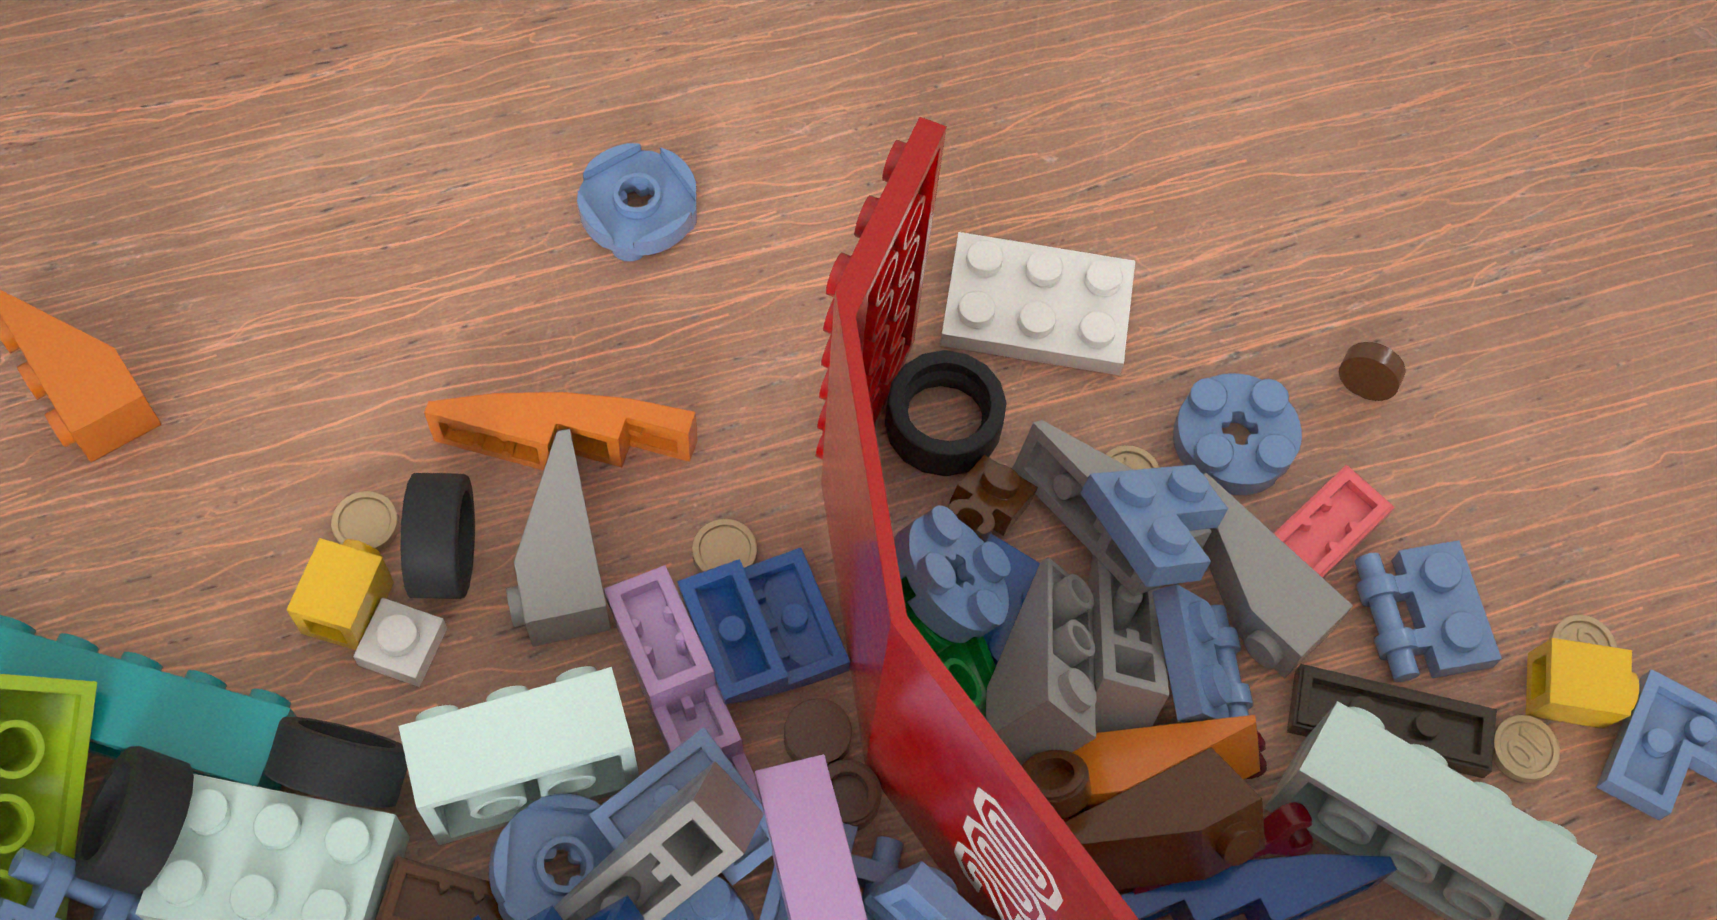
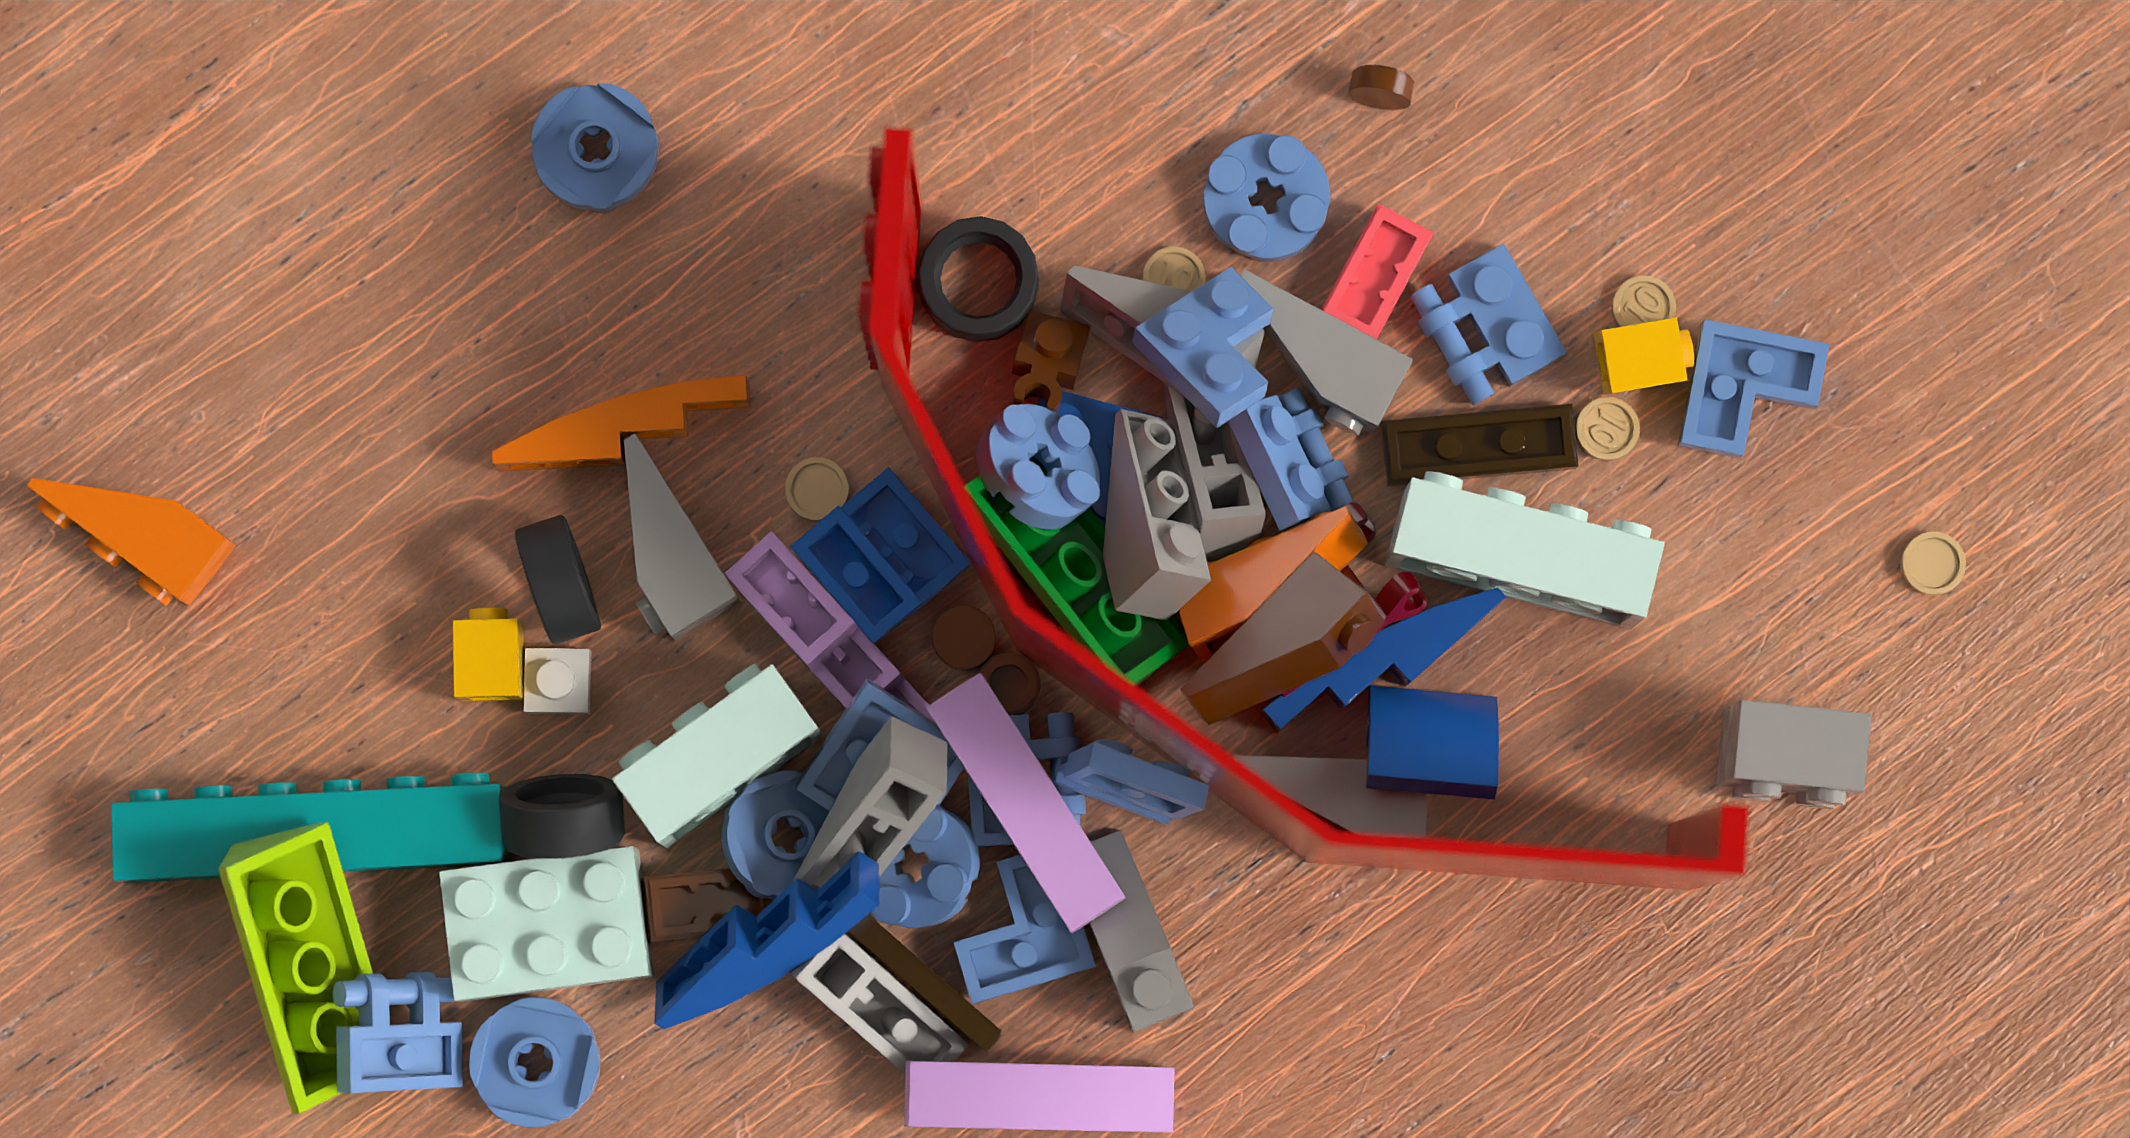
camera: 15 degrees left, 20 degrees up
(134, 820) = (417, 926): black tyre -> none
(366, 518) = (473, 577): tan piece -> none
(1038, 303) = (1032, 119): white plate -> none
(1061, 779) = (1187, 631): reddish brown tile -> none

